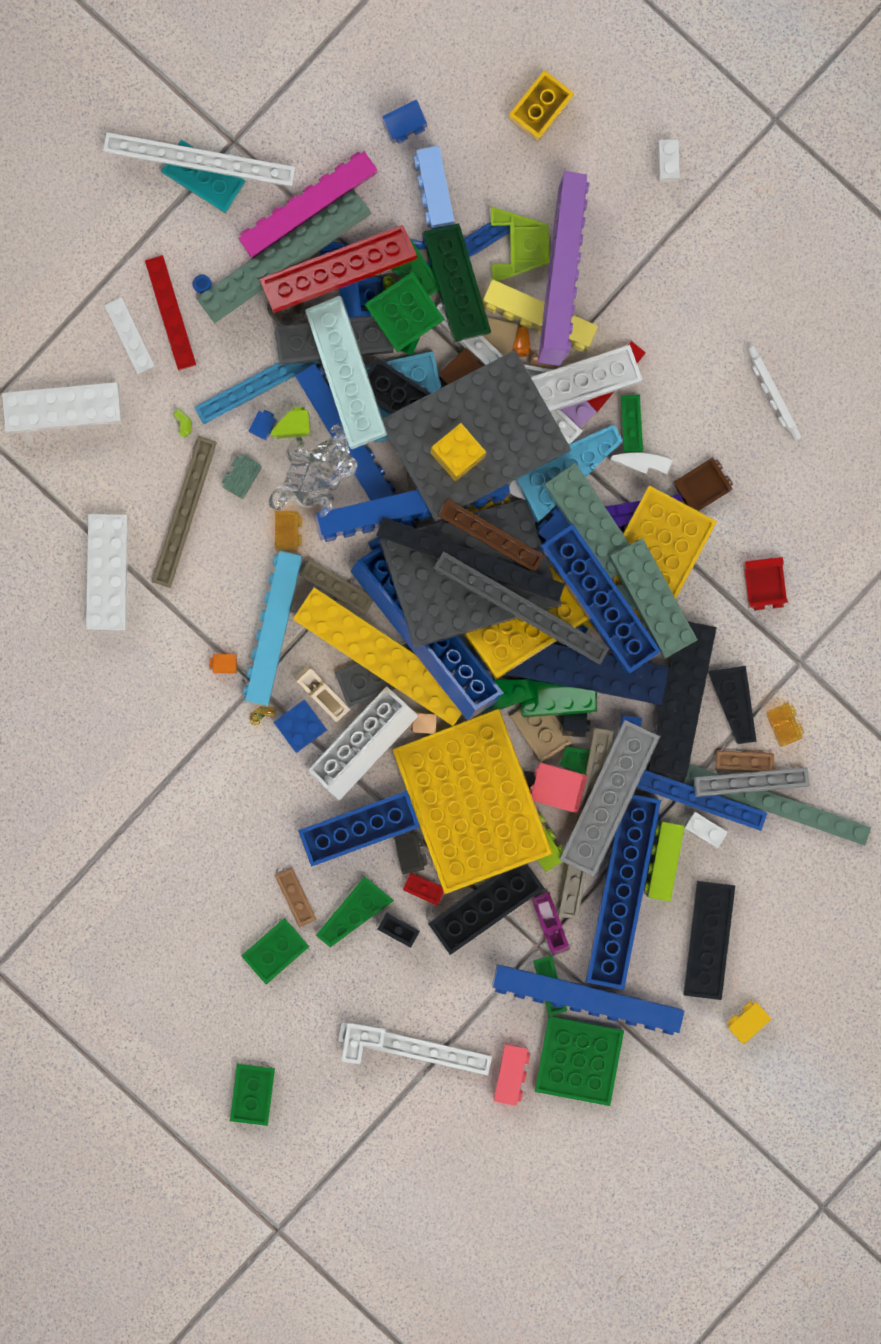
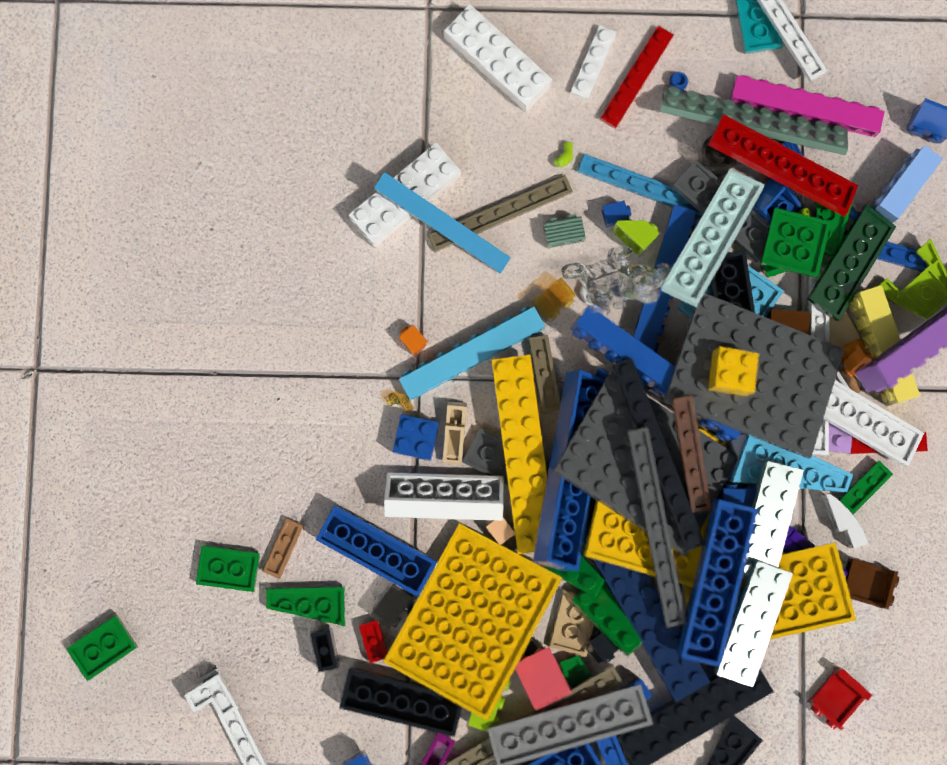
camera: 55 degrees right, 5 degrees down
(154, 564) = (442, 222): none -> dark azure tile
(531, 345) = (857, 360): none -> orange brick

